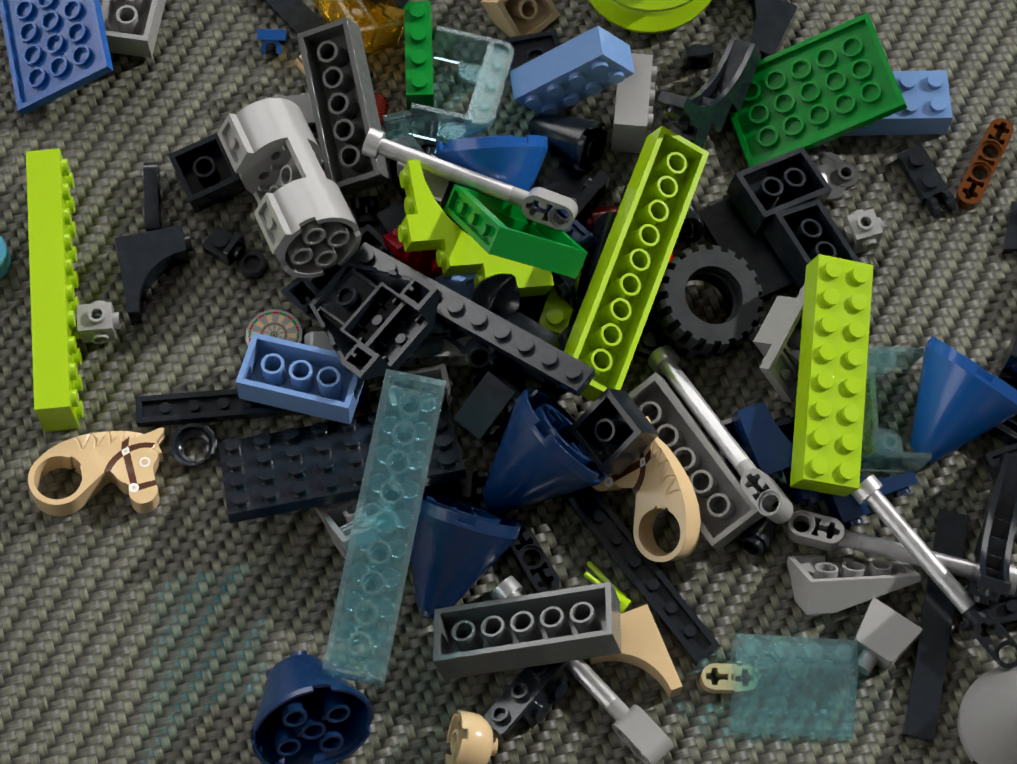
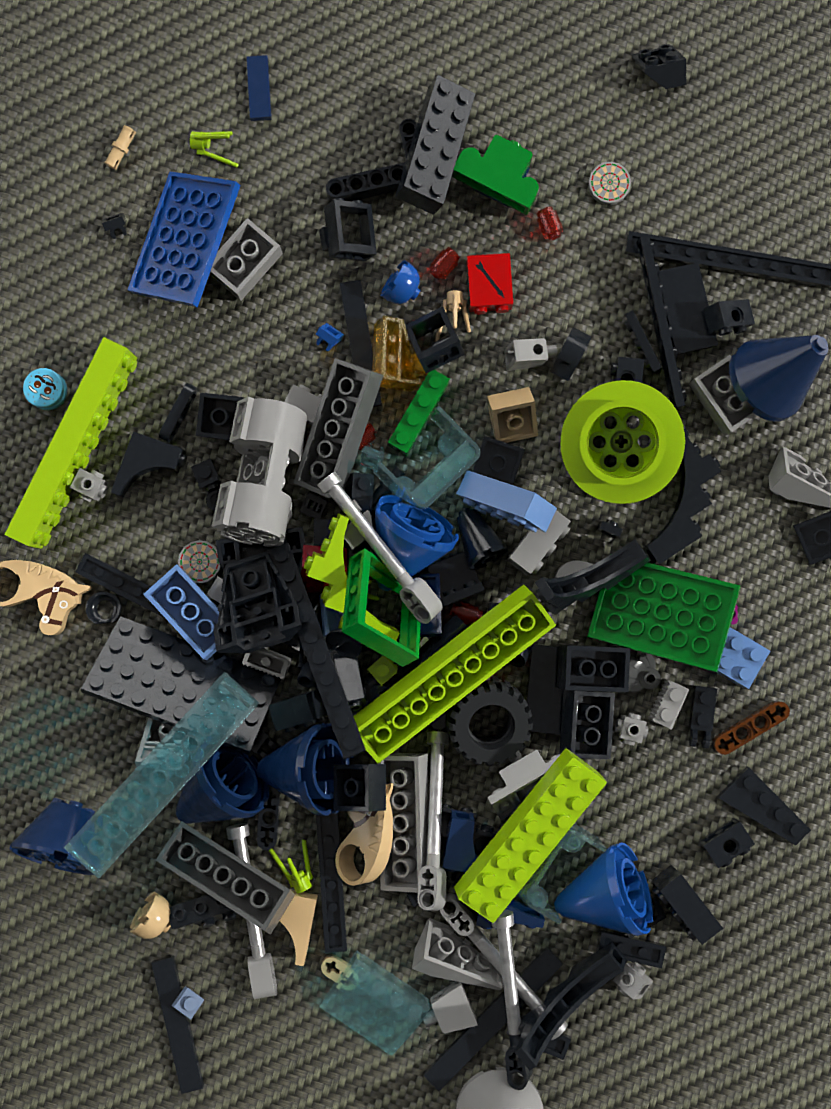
camera: 30 degrees right, 20 degrees up
(883, 185) = (668, 704): none -> light grey brick

